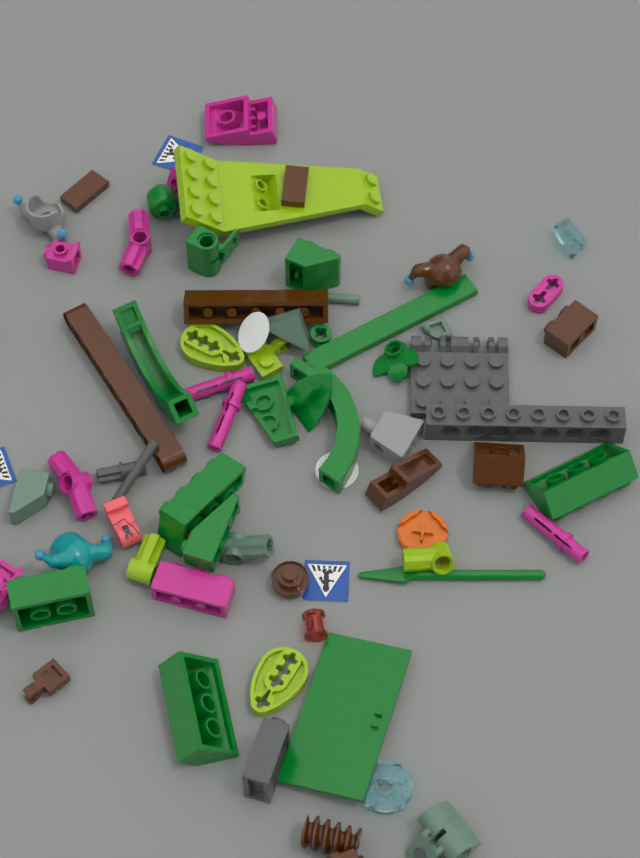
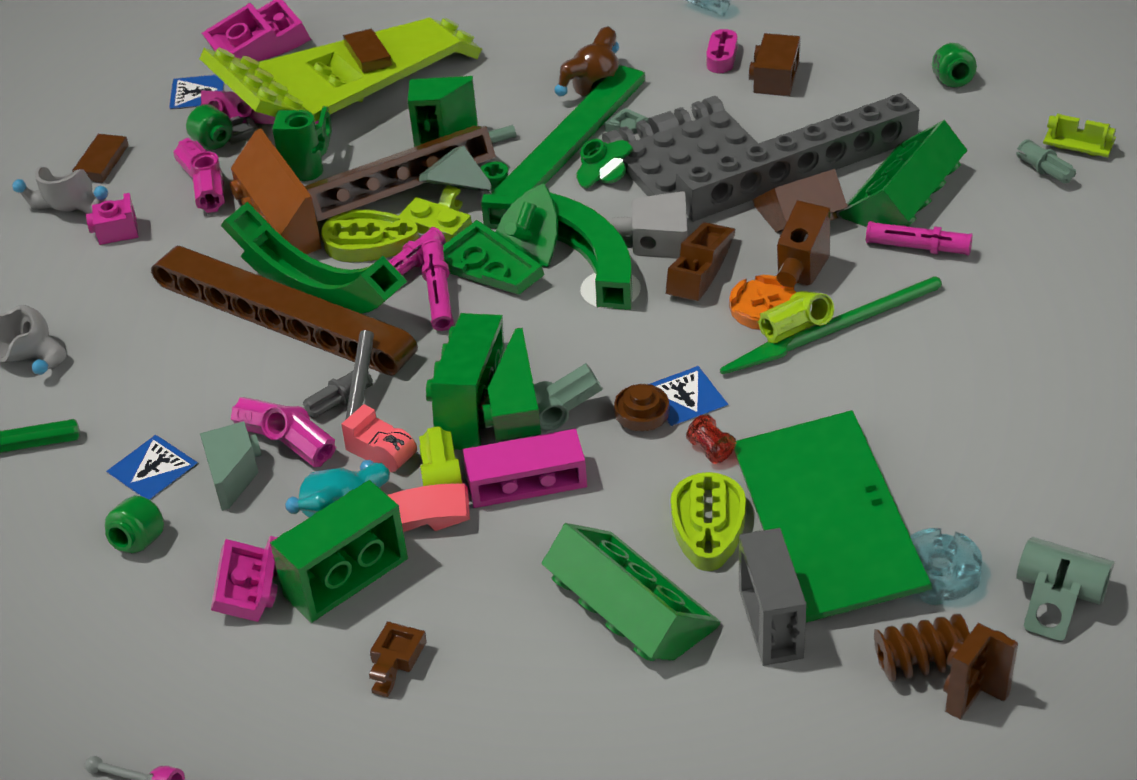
camera: 25 degrees left, 15 degrees down
(121, 588) = (433, 505): none -> coral slope
(165, 293) = (275, 192): none -> dark orange slope
(253, 332) = (414, 190): white sticker -> none
(467, 507) = (800, 259): none -> reddish brown torso

